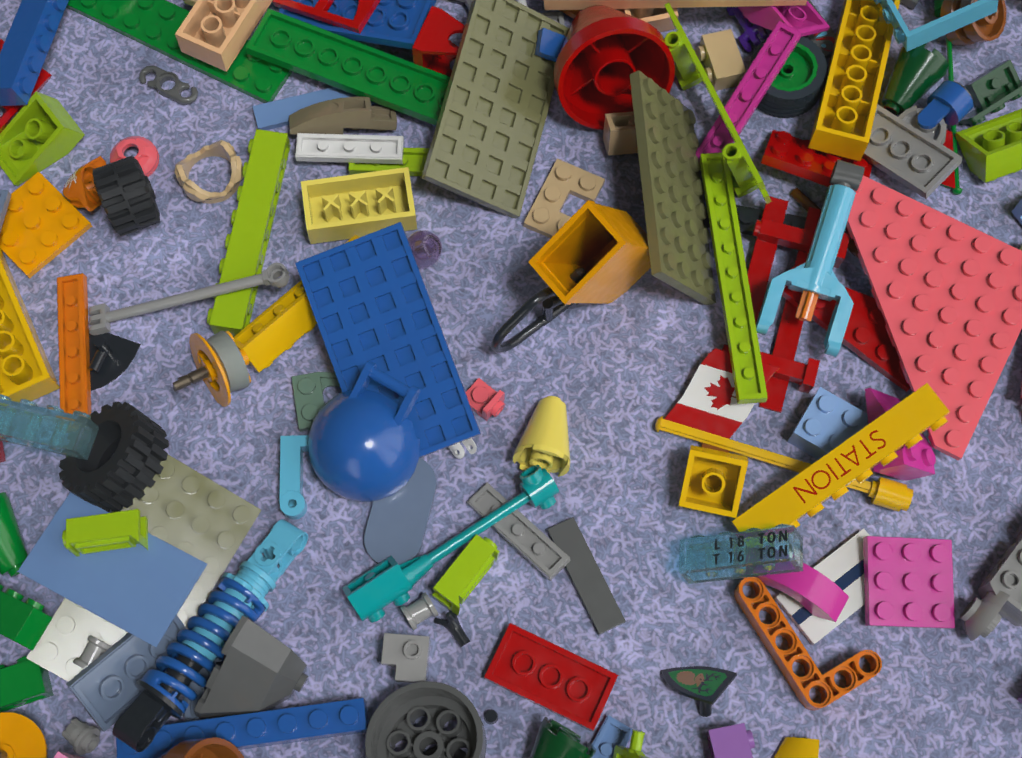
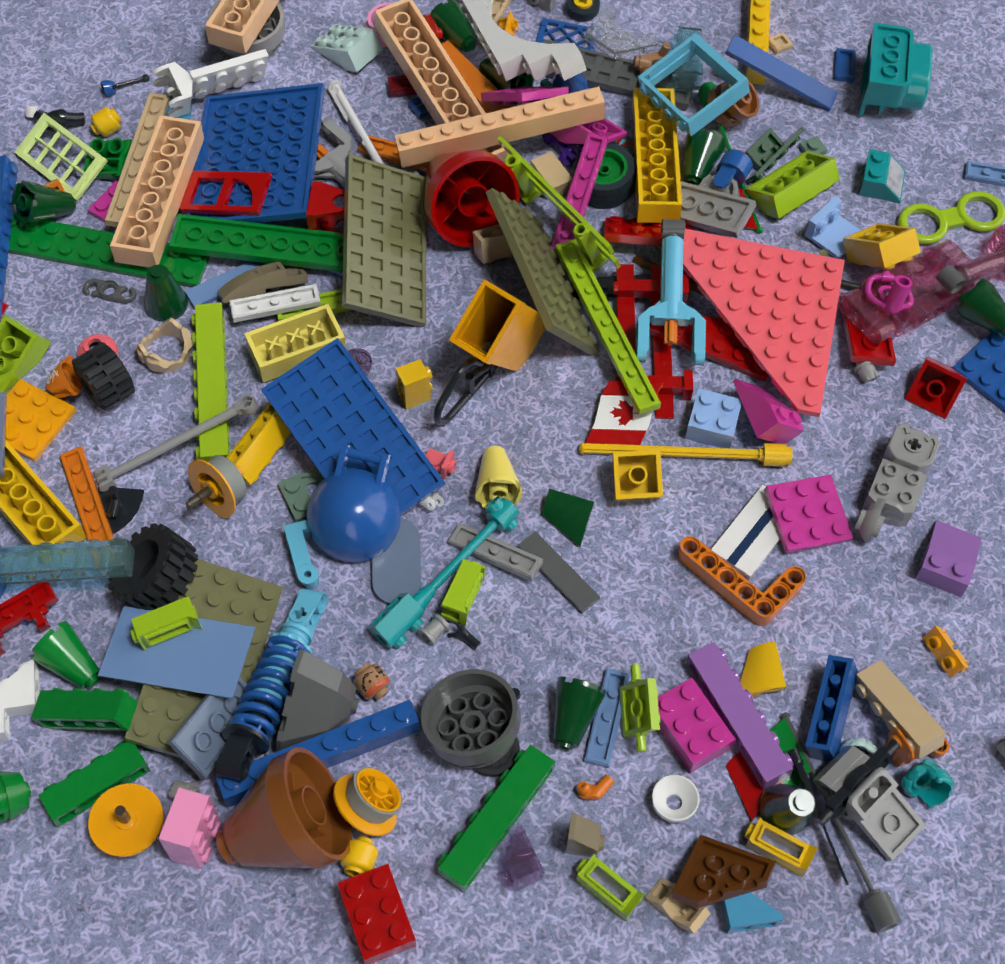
camera: 15 degrees left, 10 degrees down
(91, 652) = (180, 714): light grey bush -> none
(225, 108) = (163, 295): none -> dark green cone
(329, 658) = (371, 681): none -> medium nougat head
(408, 655) = (434, 660): light grey brick -> none
(481, 293) = (414, 383): none -> yellow brick
(549, 44) = (414, 190): blue tile -> none
(551, 677) = (553, 651): red plate -> none
(563, 179) = (446, 310): tan plate -> none
(618, 506) = (568, 514): none -> dark green slope
(700, 684) = (671, 627): shield -> none
(741, 554) = (674, 520): clear light blue brick -> none
(811, 590) = (725, 528): dark pink arch -> none
(848, 462) = (731, 437): yellow brick -> none

